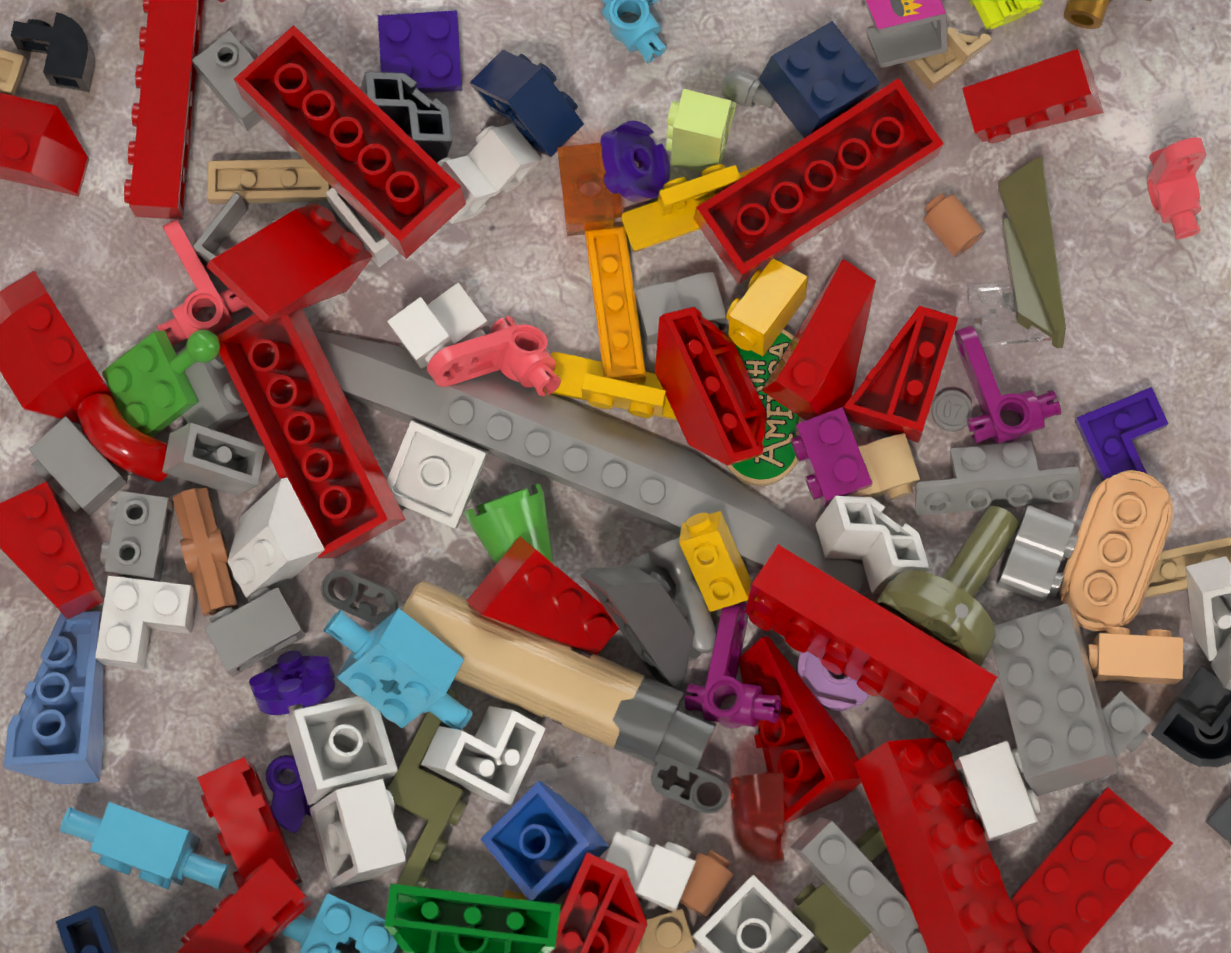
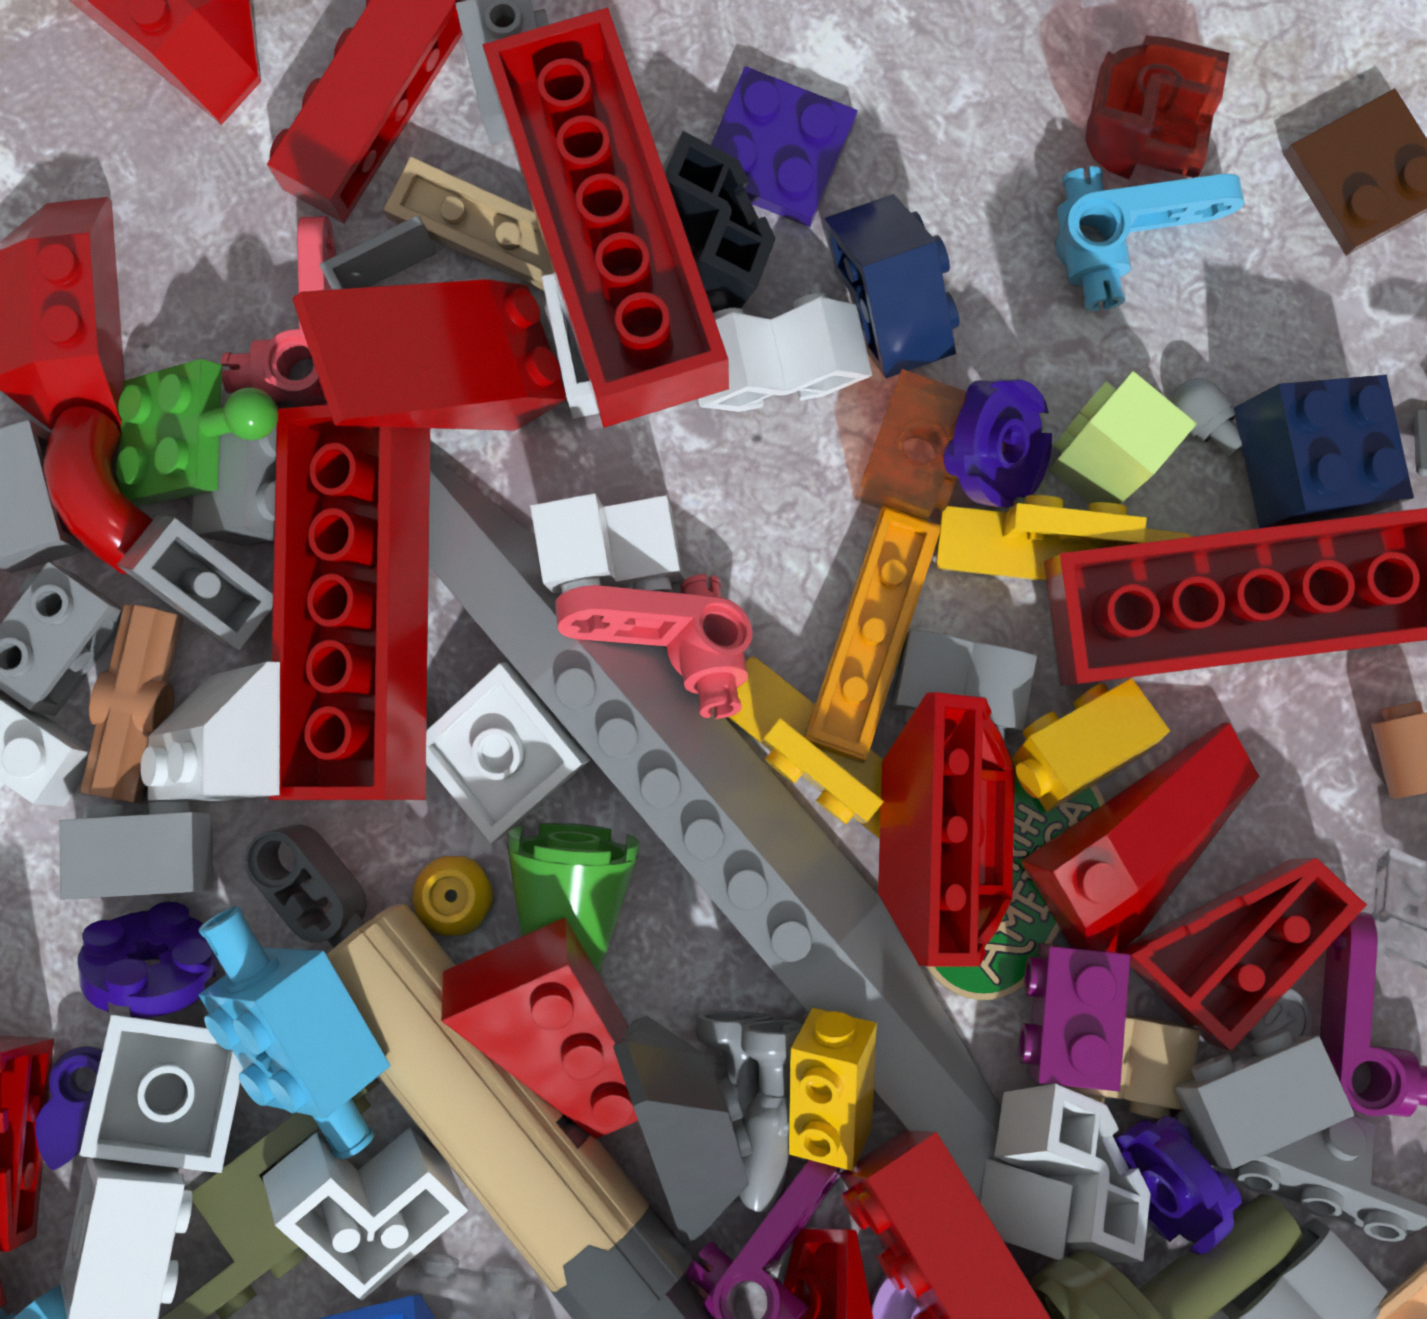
camera: 25 degrees right, 5 degrees up
(451, 557) = (473, 895): none -> yellow plate
(858, 572) = (1027, 1208): none -> white sticker
(934, 518) = (1183, 1187): none -> dark purple plate
(950, 448) = (1262, 1099): none -> light grey brick

